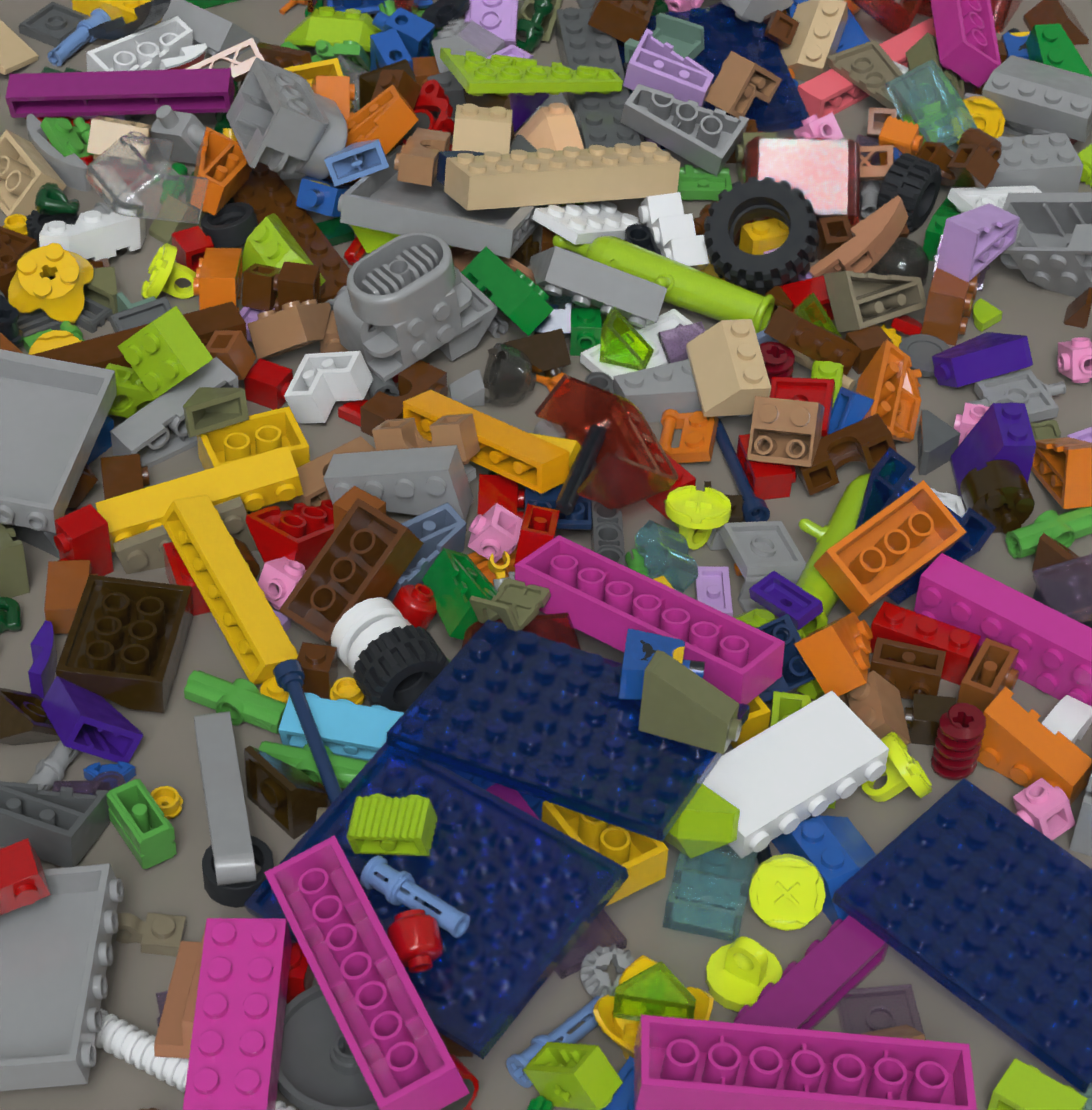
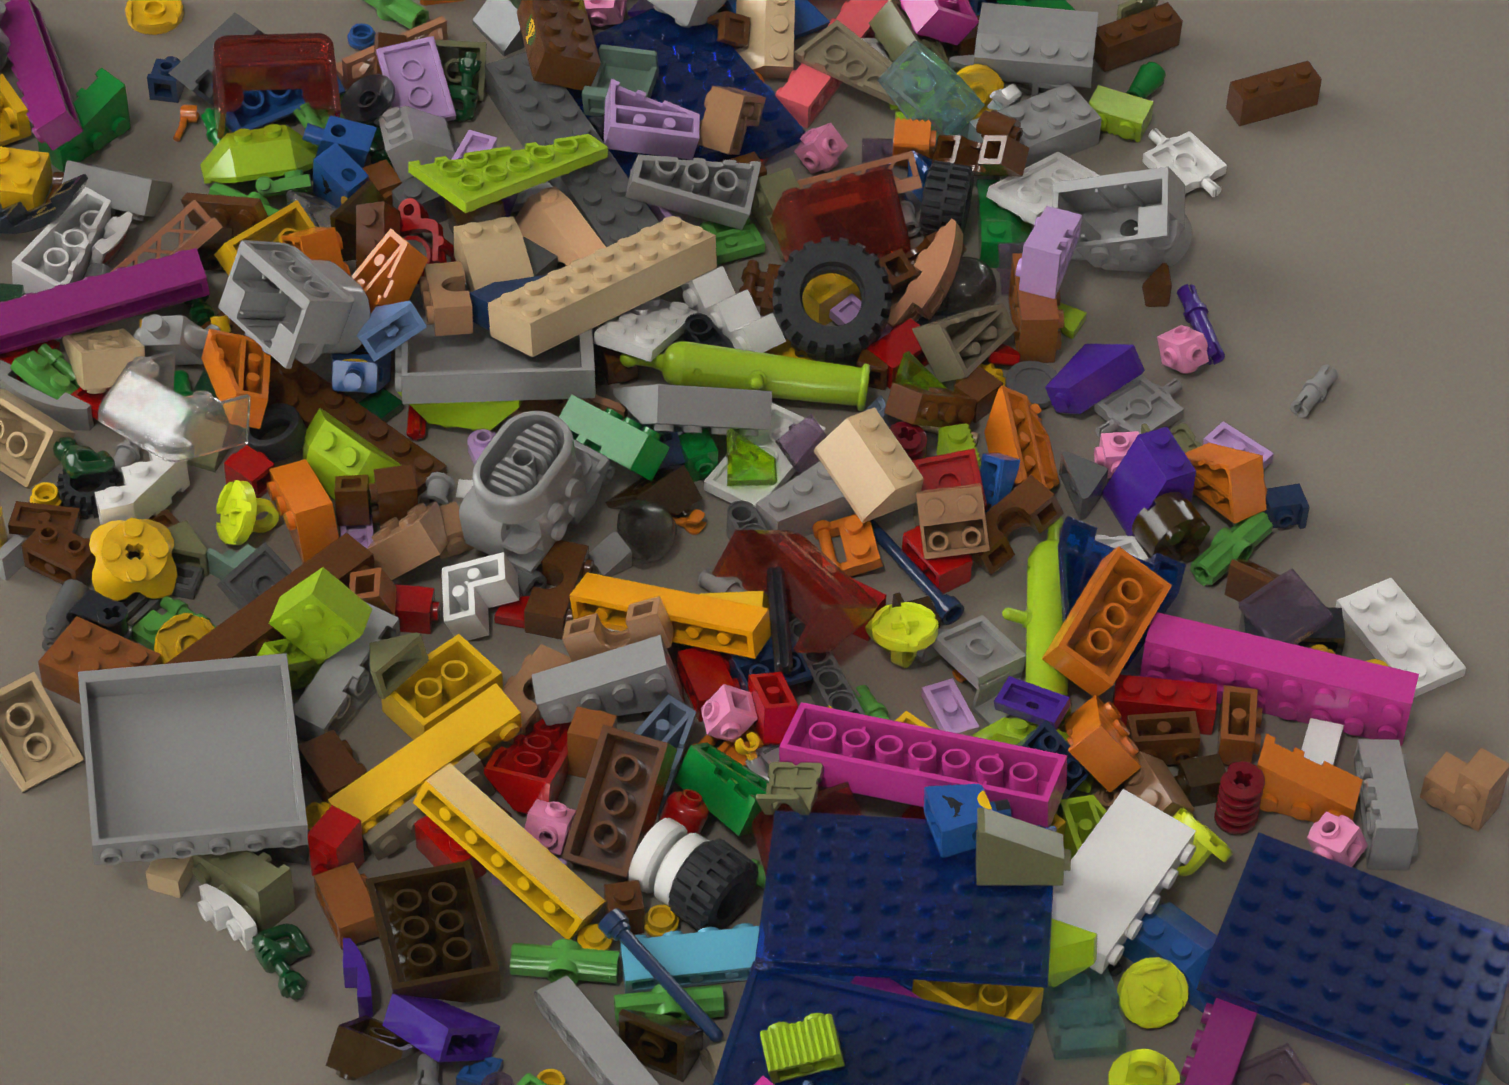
camera: 20 degrees left, 5 degrees up
(666, 554) = (892, 685): clear light blue brick -> none
(877, 118) = (879, 120): brick -> none
(1002, 128) = (1005, 97): none -> white piece

